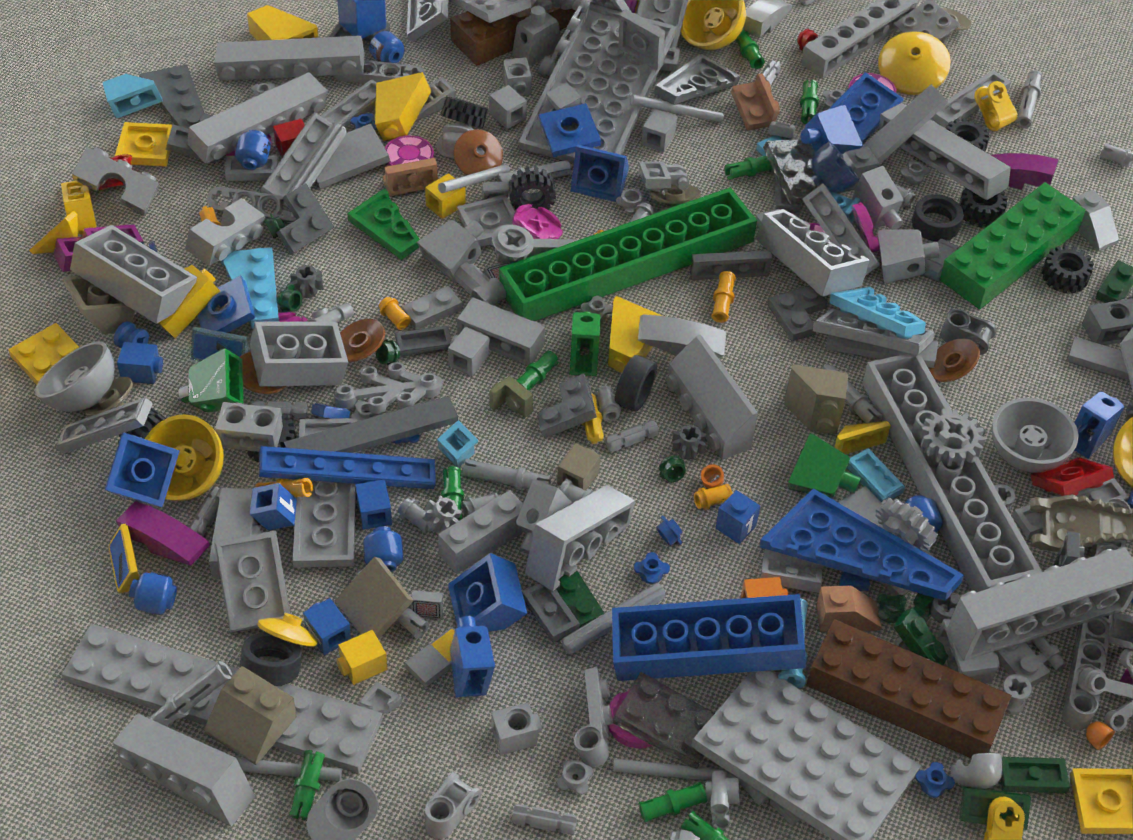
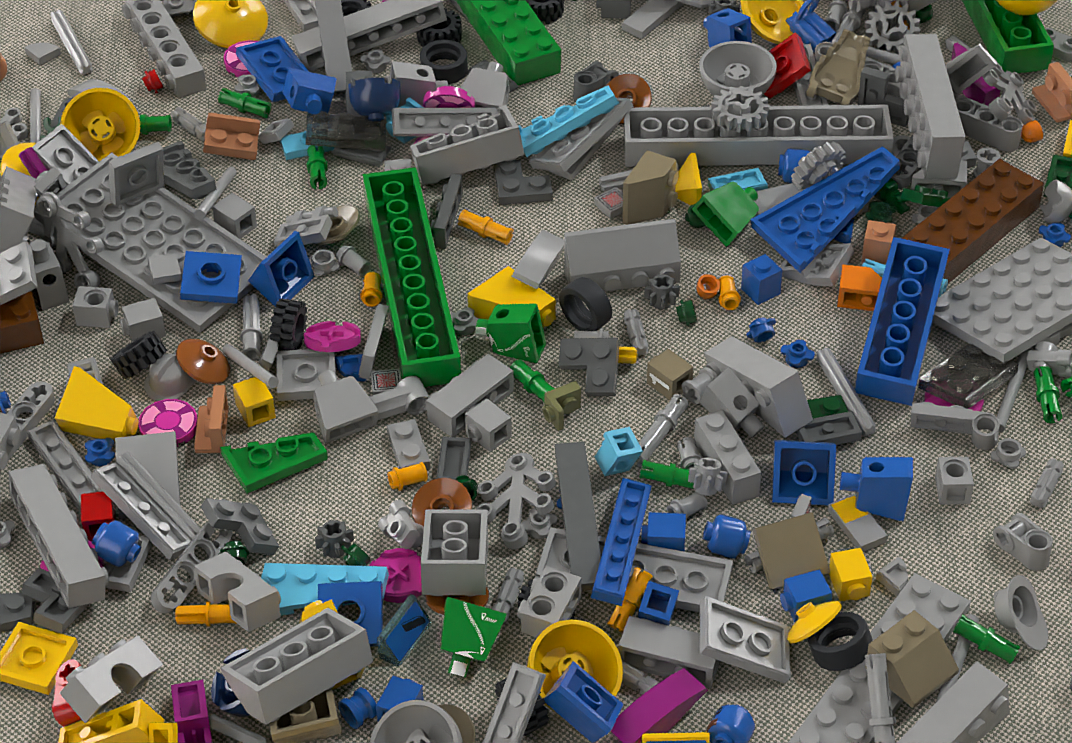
camera: 70 degrees left, 5 degrees down
(329, 412) = (533, 550): blue tile -> none
(514, 234) = (388, 343): light grey gear -> none

